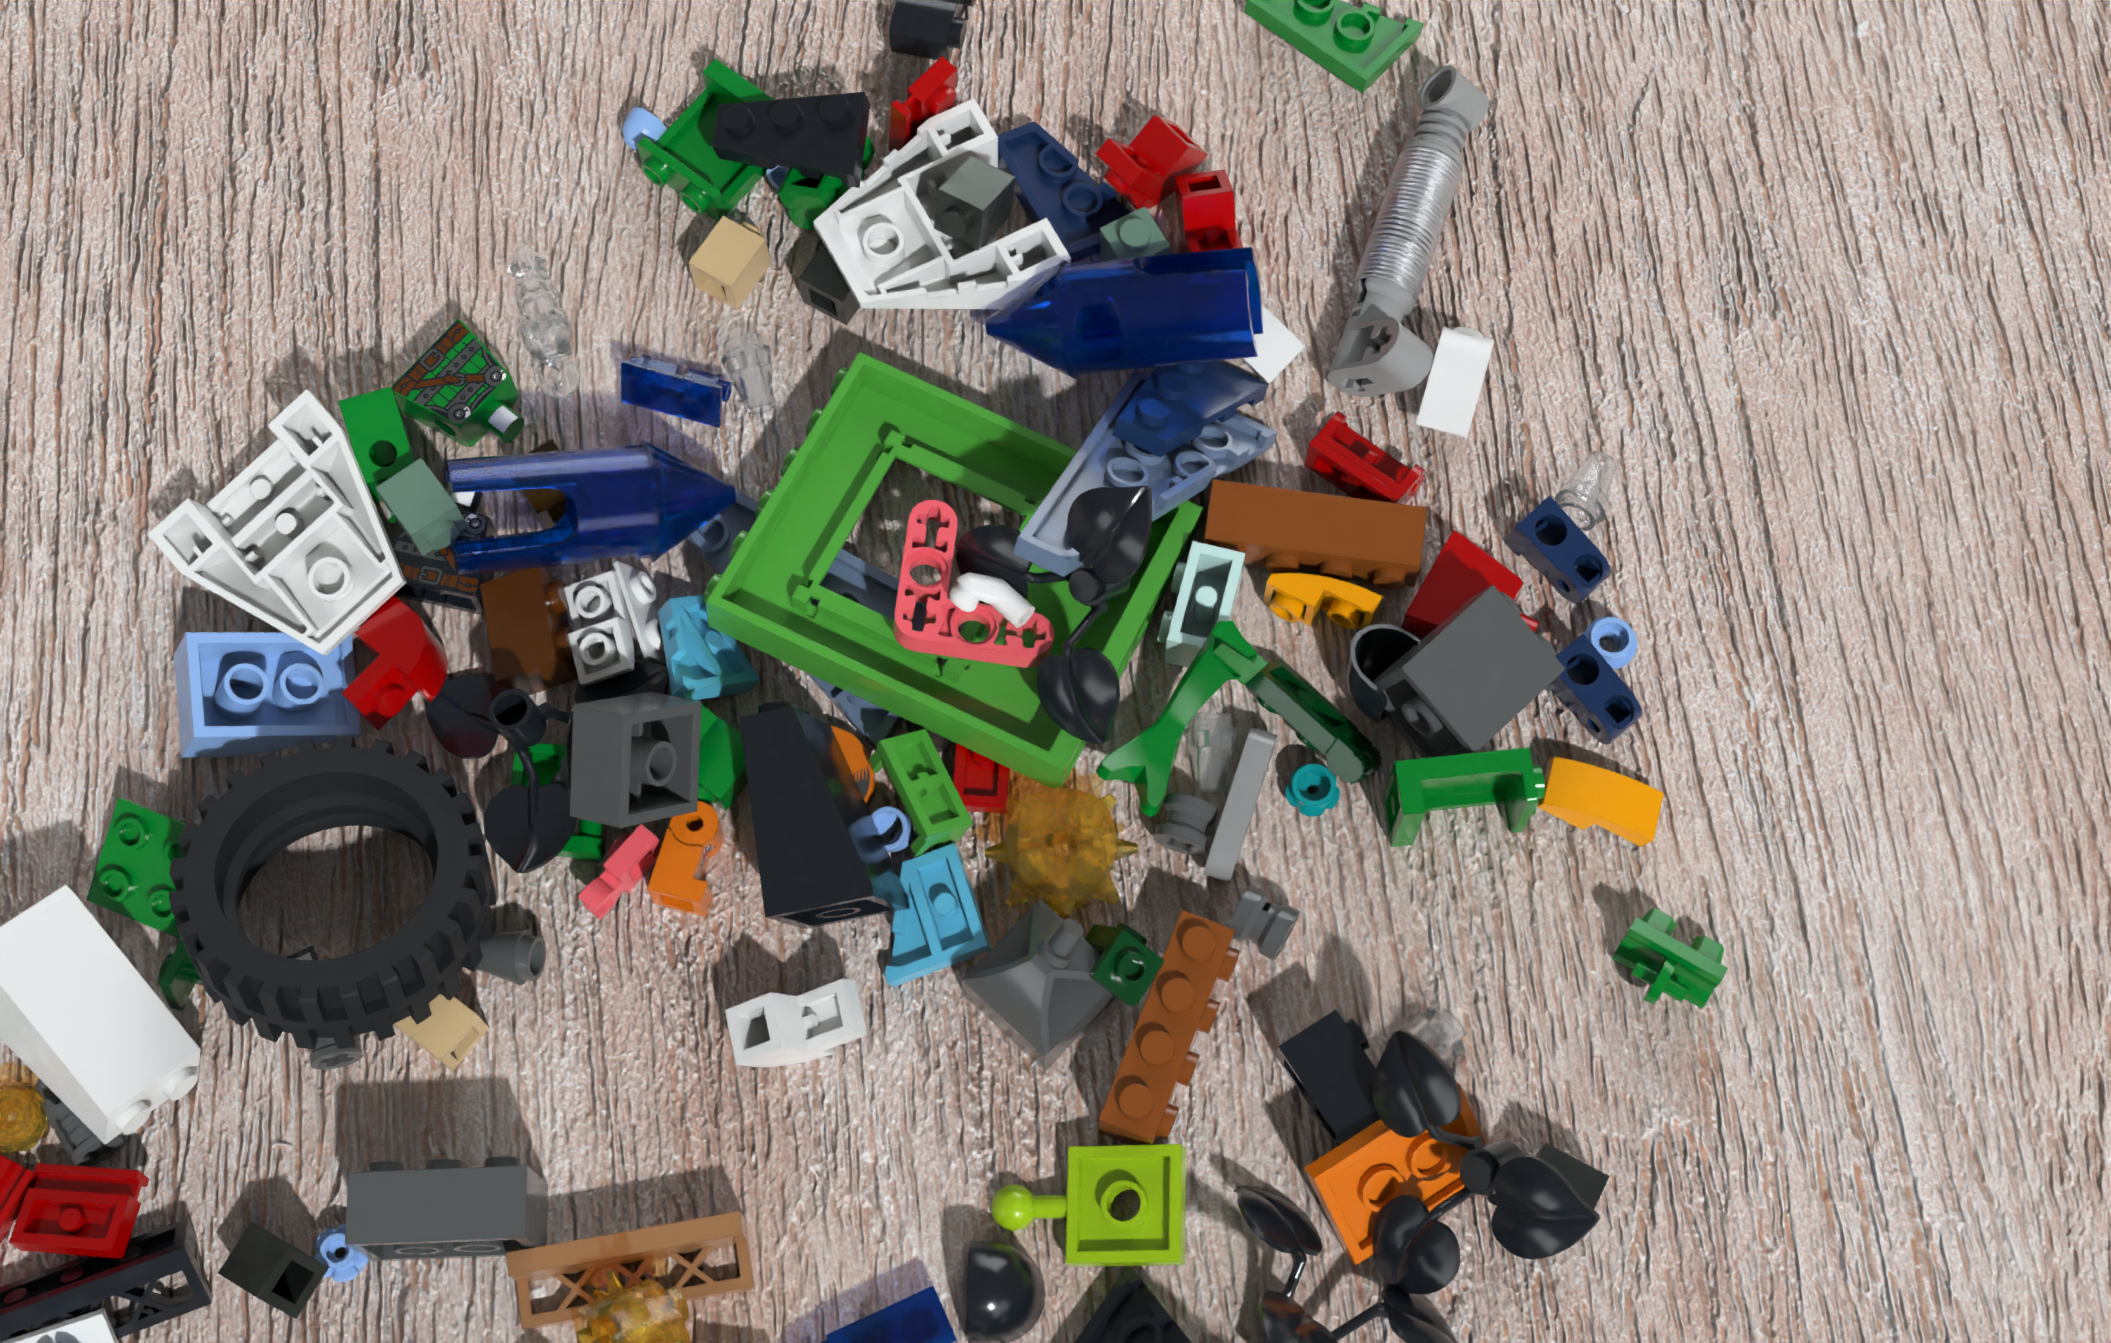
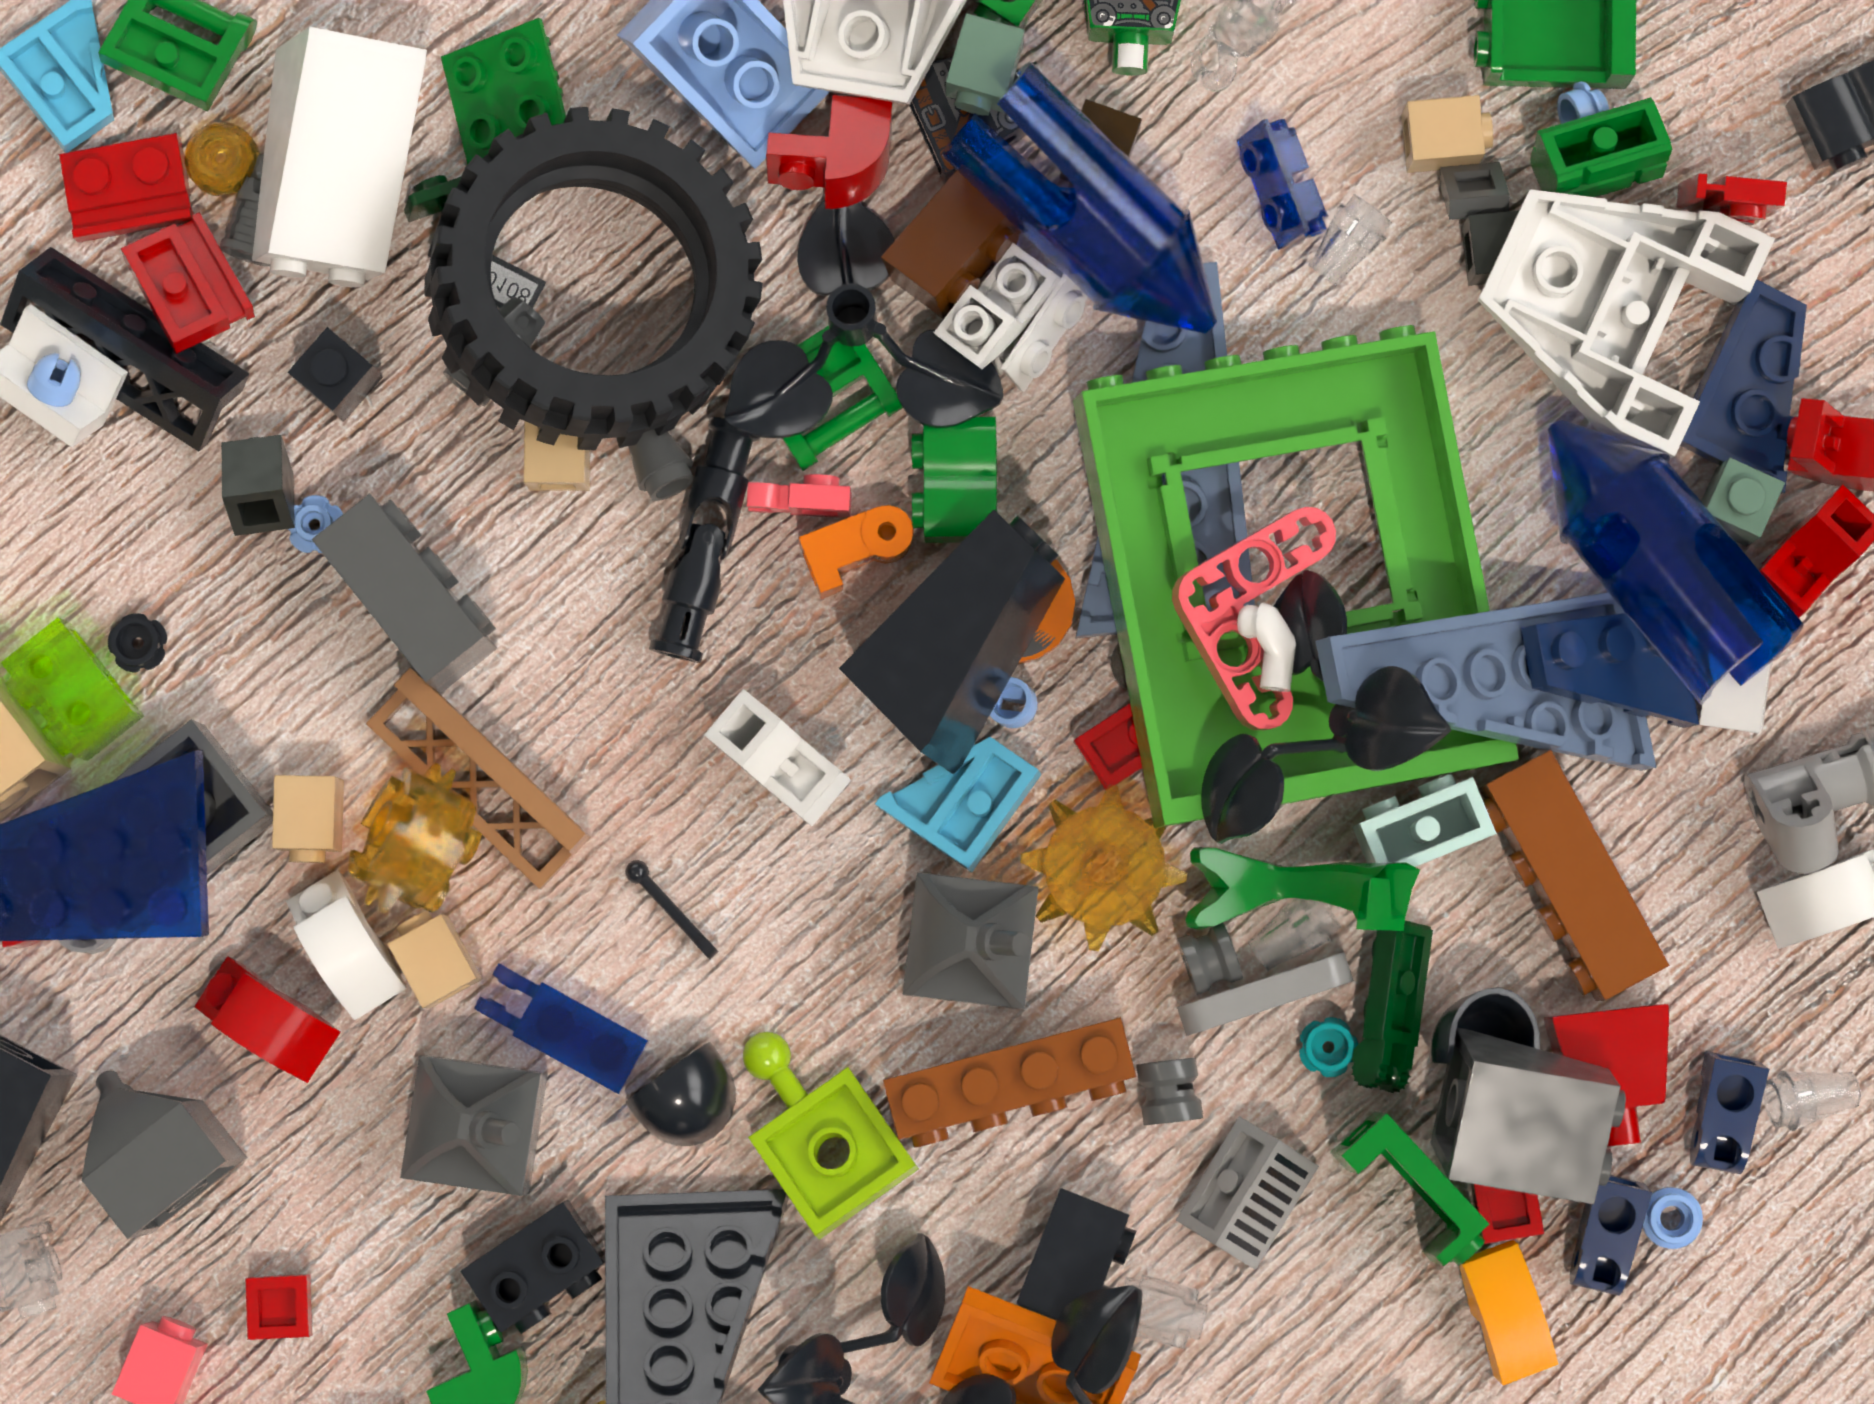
camera: 55 degrees right, 15 degrees up
(243, 1147) = (335, 374): none -> black brick
(615, 989) = (695, 579): none -> black piece
(632, 759) = (891, 442): dark grey piece -> none
(699, 658) = (1039, 414): medium azure wing -> none
(783, 269) = (1474, 189): none -> dark grey plate
(798, 133) = (1611, 107): black wing -> none
(800, 1201) = (637, 873): none -> black hinge
(923, 789) = (1065, 707): bright green hinge -> none
(974, 202) = (1658, 326): pearl dark grey brick -> none
(1124, 963) = (1033, 1005): dark green bracket -> none
(1303, 595) = (1505, 909): light orange slope -> none
(1360, 466) = (1680, 872): red hinge -> none
(1377, 922) = (1247, 1192): none -> light grey panel
(1524, 733) = (1508, 1213): none -> red plate

